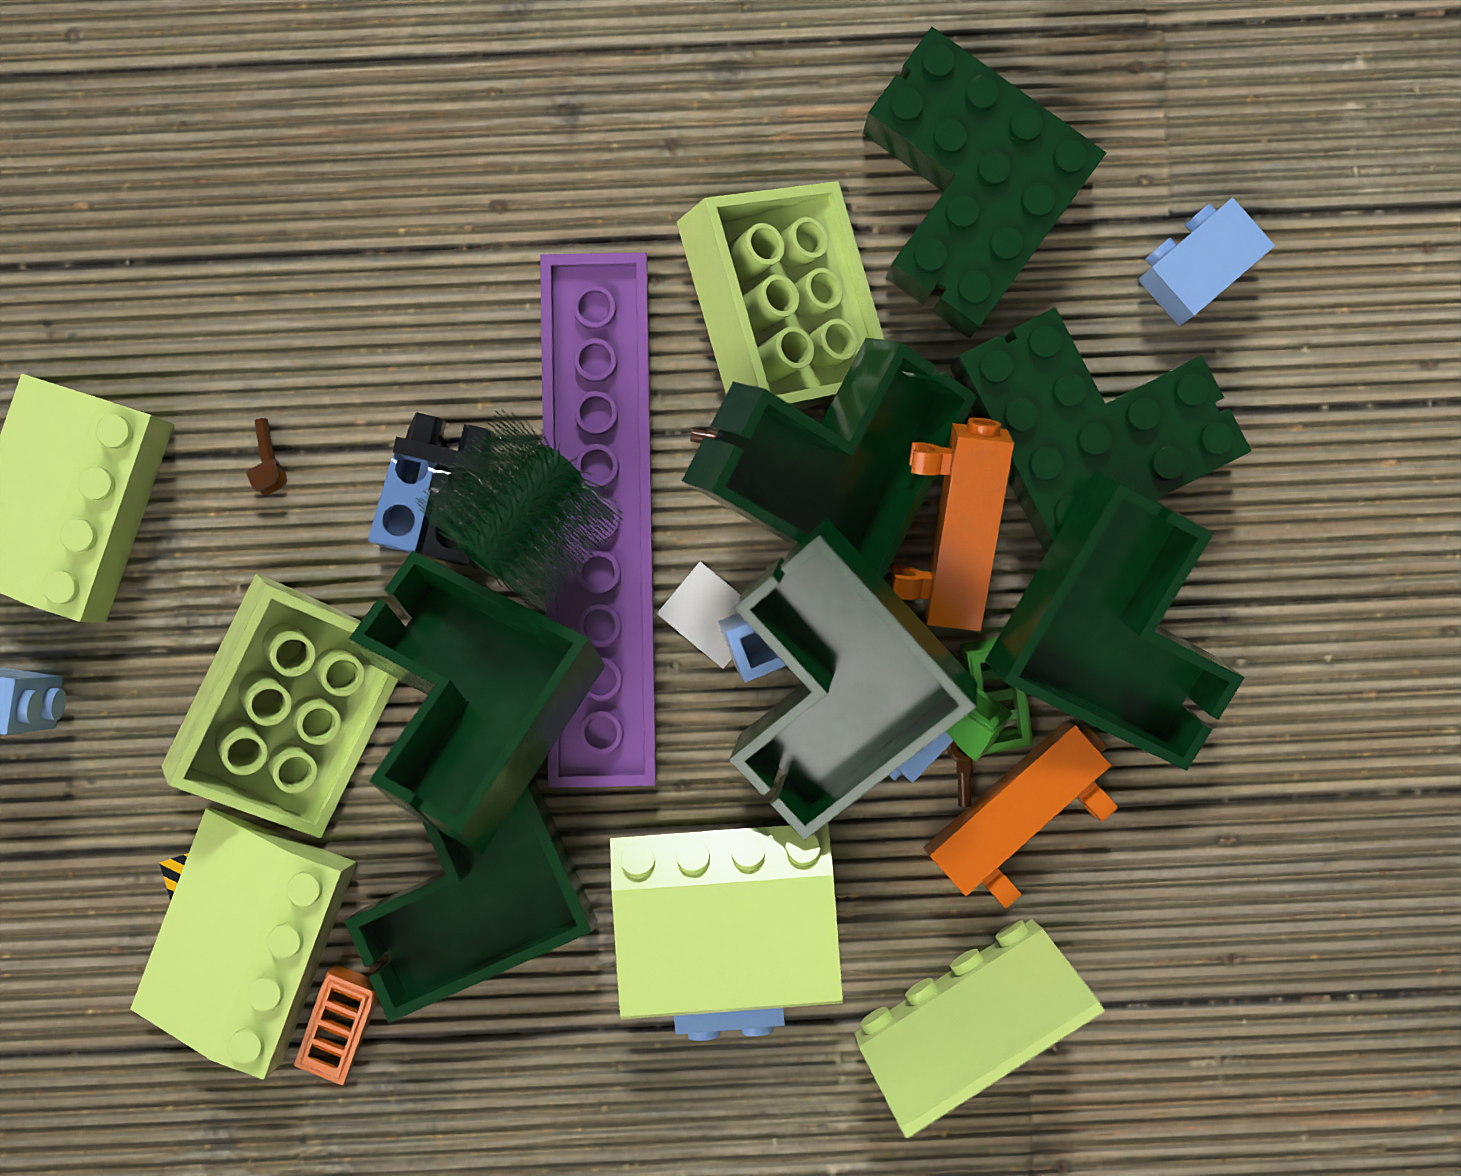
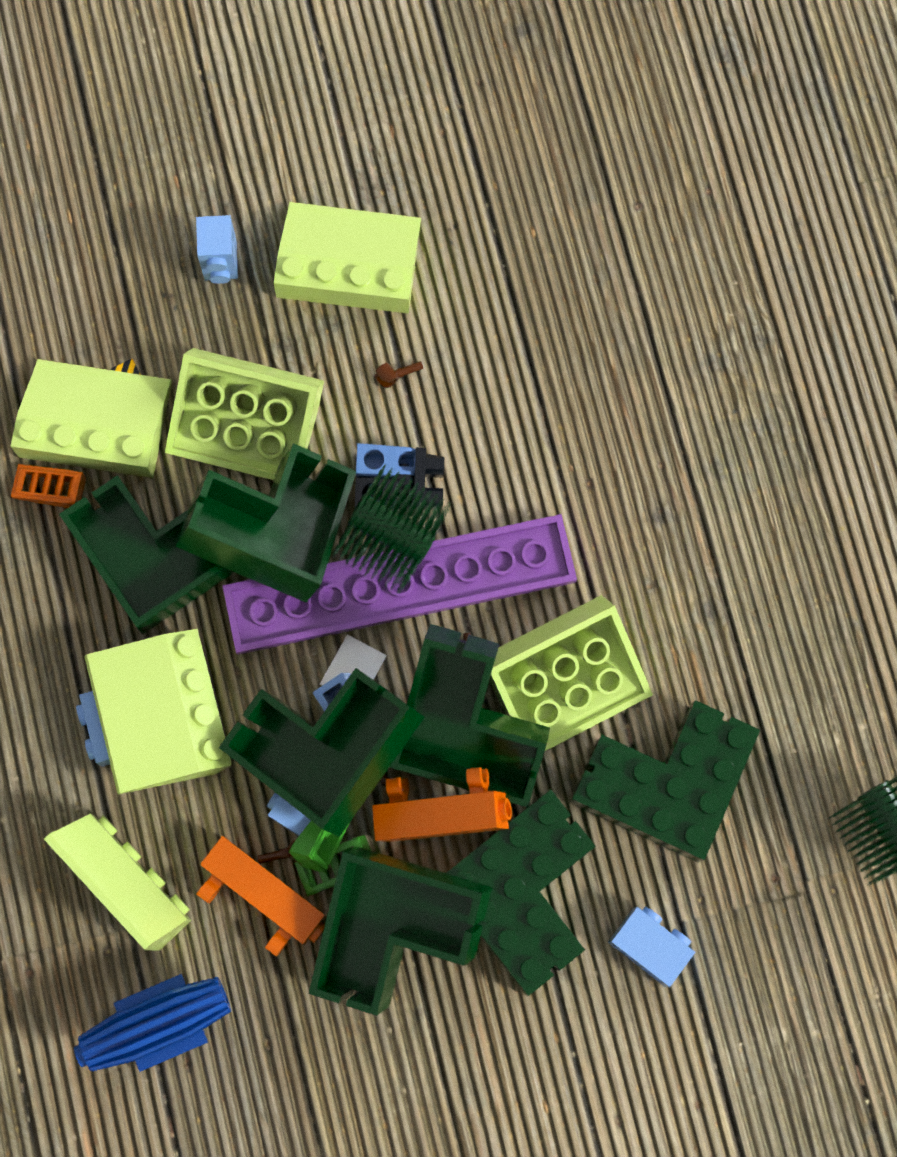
camera: 75 degrees right, 10 degrees down
(1181, 1002) = (154, 1024): none -> blue plate

